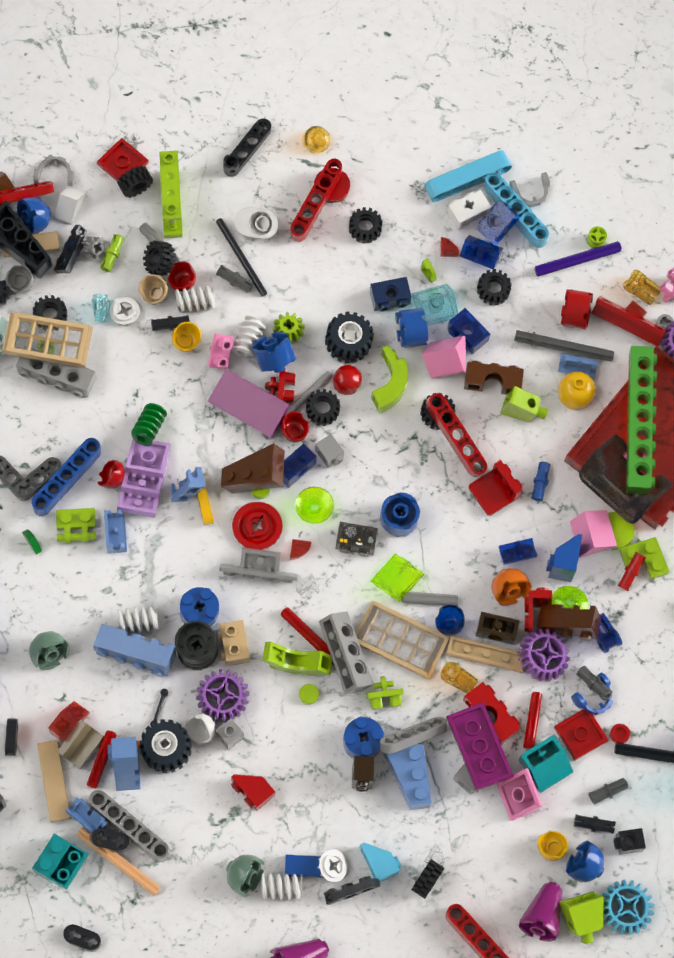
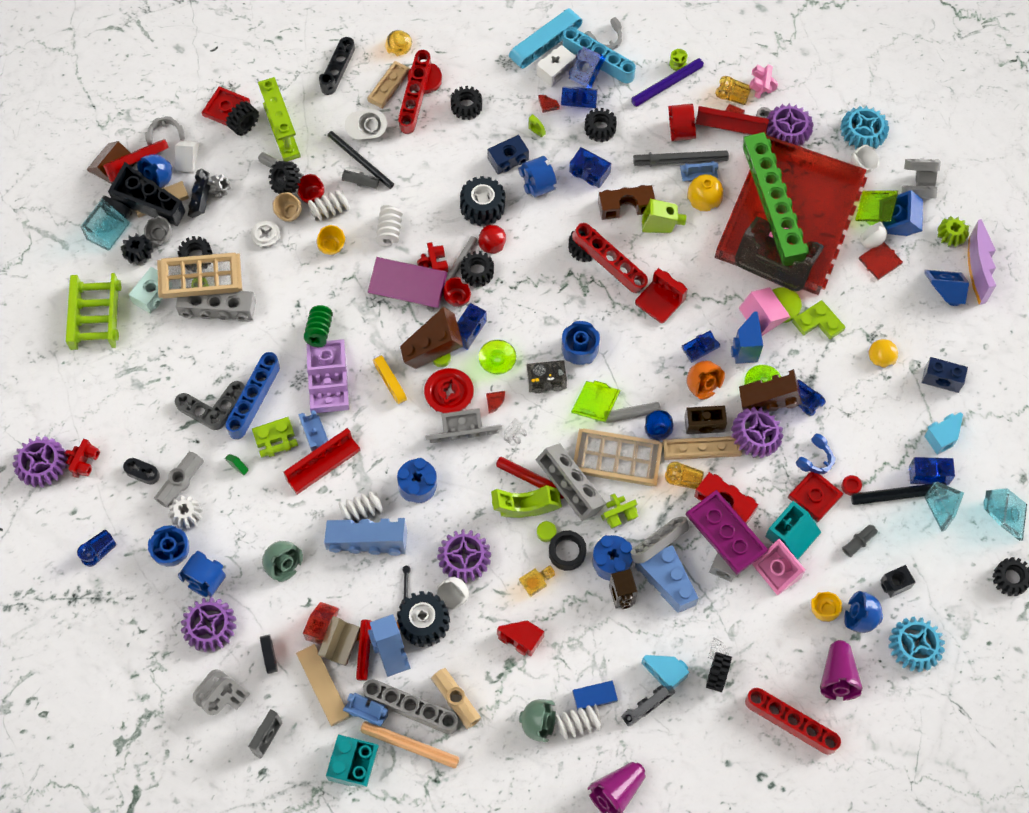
camera: 10 degrees left, 5 degrees down
(100, 307) = (241, 235): clear light blue cone -> none
(110, 834) = (394, 719): black beam -> none
(112, 253) = (239, 186): lime pin -> none
(112, 474) = (296, 381): red hair -> none
(114, 562) = (321, 461): none -> red fence
(168, 323) = (309, 233): black pin -> none
(178, 842) = (463, 708): none -> tan piece
(189, 486) = (374, 371): medium blue hinge -> none
(193, 635) = (421, 505): pearl dark grey wheel -> none
(220, 351) = (366, 243): bright pink hips -> none
(229, 734) = (482, 589): light grey brick -> none
(234, 643) = (460, 503): tan brick -> none
(273, 352) = (417, 230): blue brick -> none
(281, 739) = (535, 581): none -> clear yellow plate
(289, 321) = (423, 208): lime gear -> none
(293, 182) = (388, 84): none -> tan tile
(322, 703) = (572, 536): none -> black tyre
(329, 451) = (496, 305): light grey brick -> none
(339, 869) = (629, 687): white gear -> none
(390, 394) = (535, 242): lime arch -> none
(438, 303) = (555, 149): clear light blue slope -> none
(445, 357) = (577, 194): bright pink slope -> none
(532, 721) = (766, 495): red axle -> none
(534, 600) = (731, 386): red bracket -> none
(540, 481) = (700, 280): blue pin -> none
(584, 915) = (879, 662): lime torso -> none
(594, 683) = (812, 444): dark grey pin -> none
(594, 824) = (857, 575): black pin -> none
(631, 571) = (811, 335): red pin -> none

